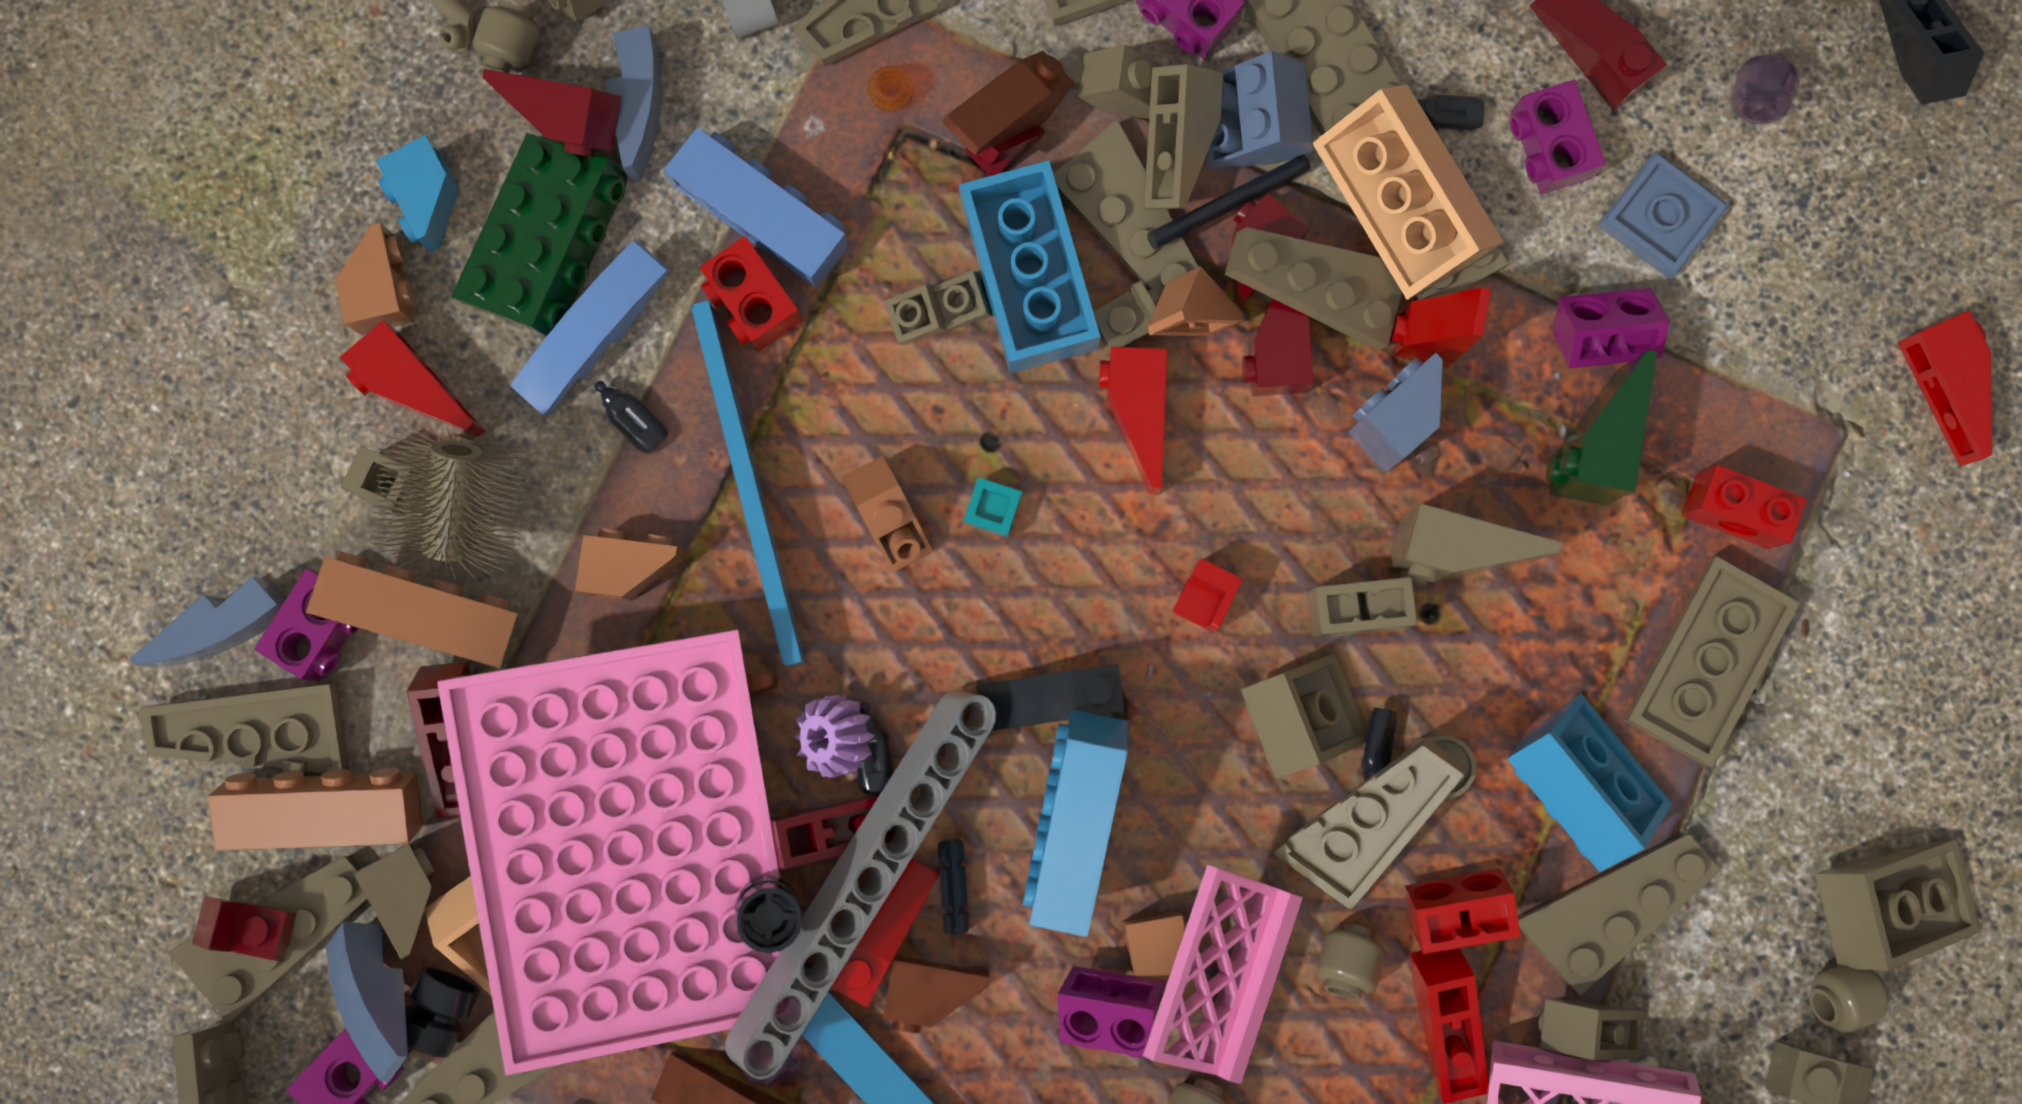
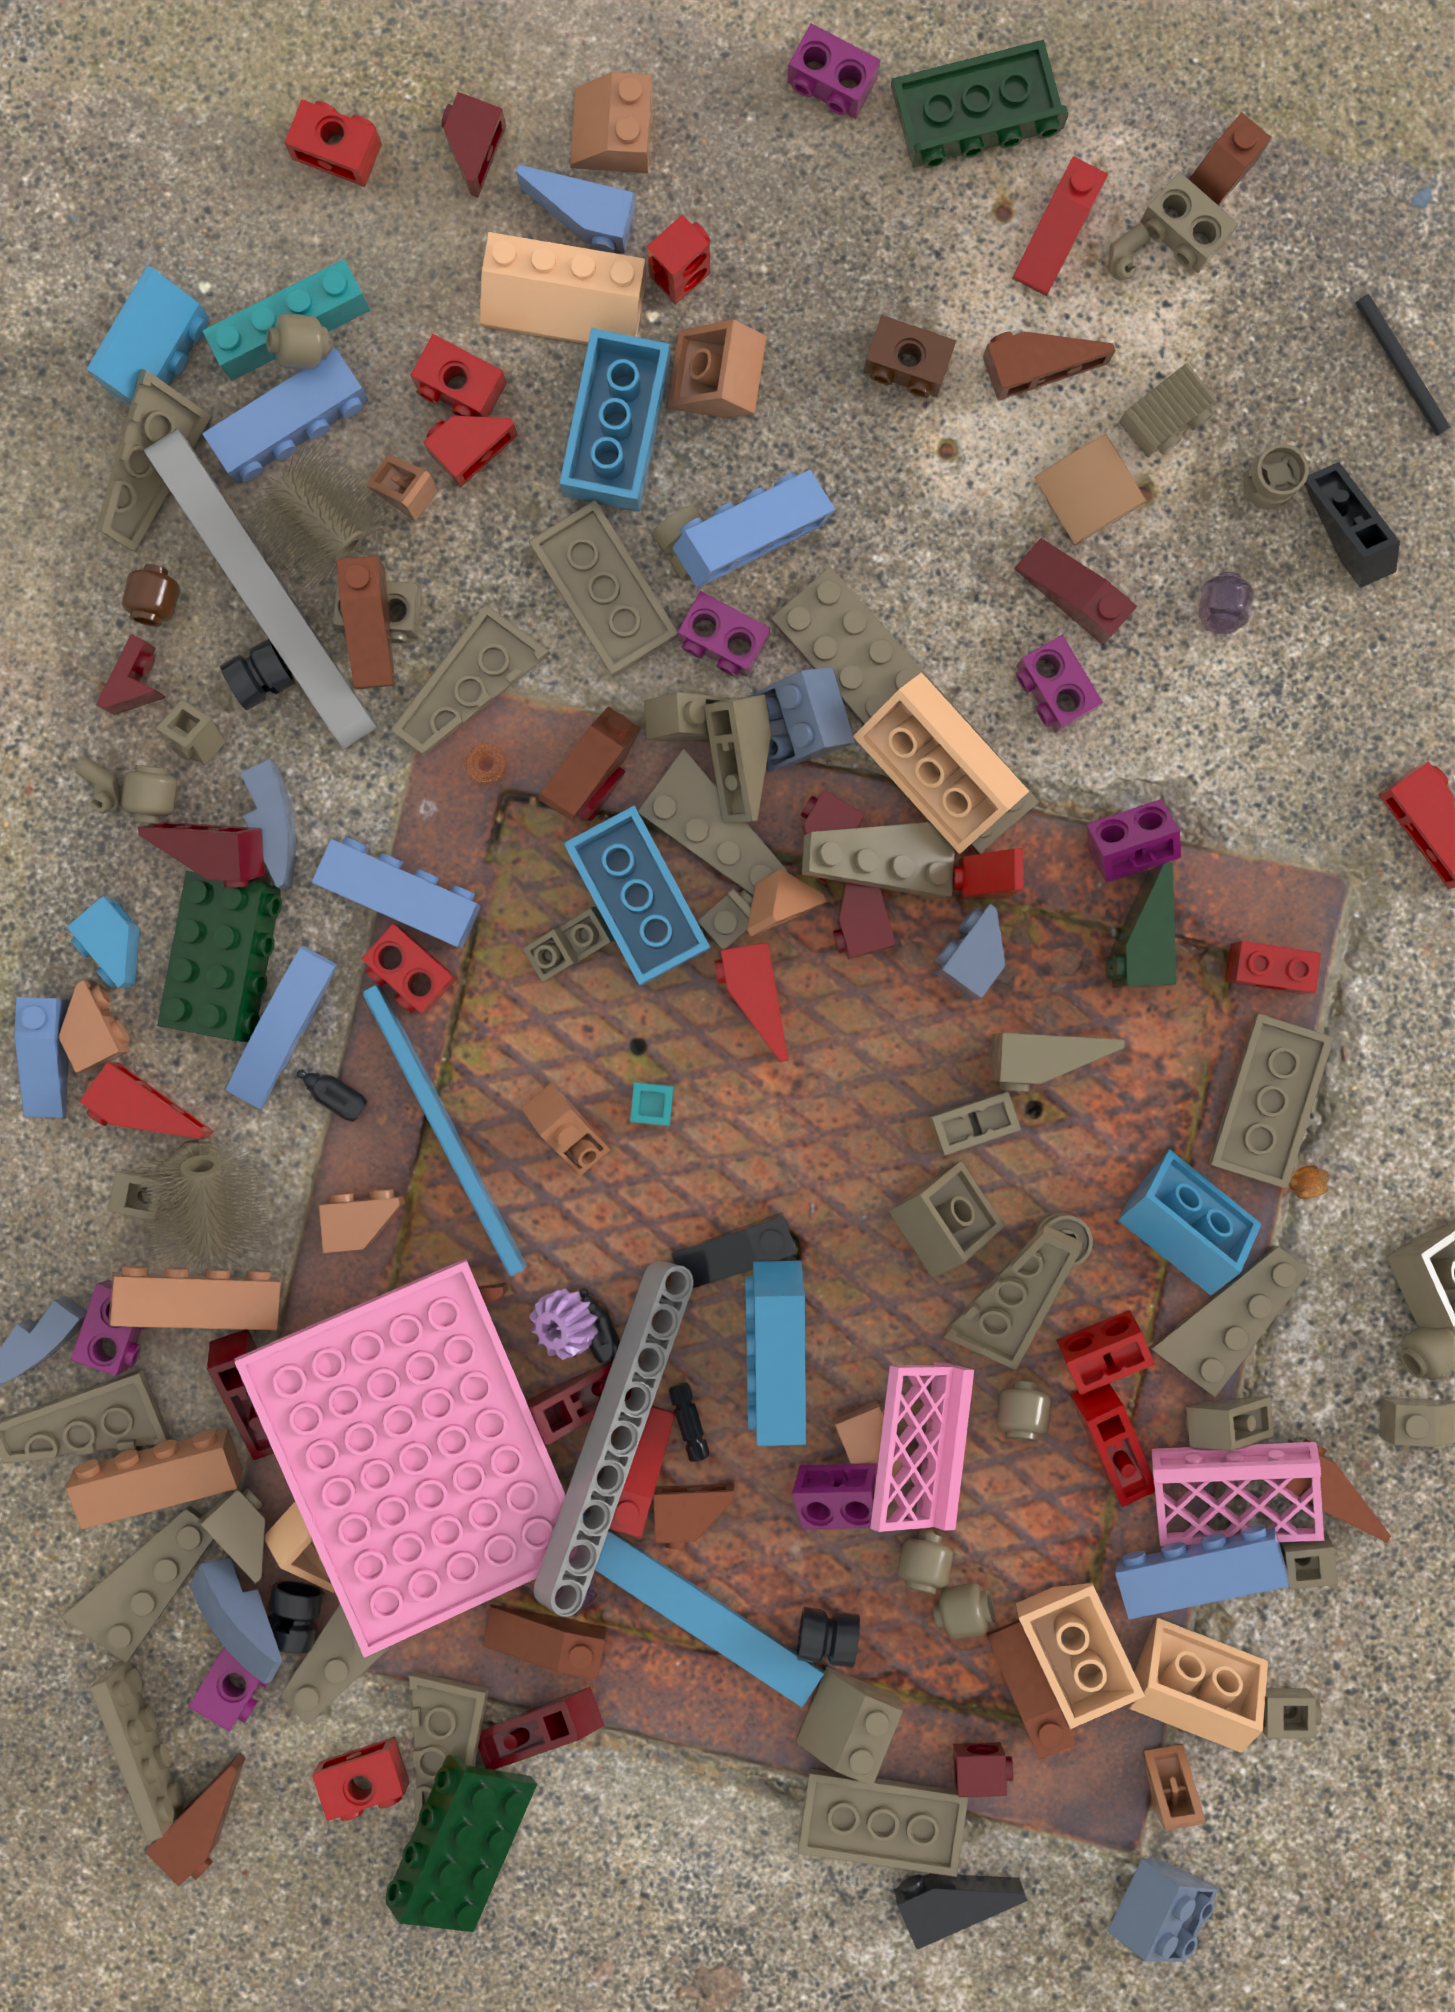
camera: 15 degrees left, 5 degrees up
(243, 929) = (119, 1586): dark red slope -> none
(311, 300) = (41, 1056): none -> medium blue slope
(768, 914) = (544, 1484): black wheel -> none
(1207, 595) = (845, 1138): red panel -> none
(1228, 202) = (793, 801): black bar -> none
(1379, 742) = (1011, 1228): black piece -> none
(1453, 111) = (964, 679): black piece -> none
(1663, 215) = (1161, 729): sand blue tile -> none
(1739, 765) = (1309, 1182): none -> clear orange plate

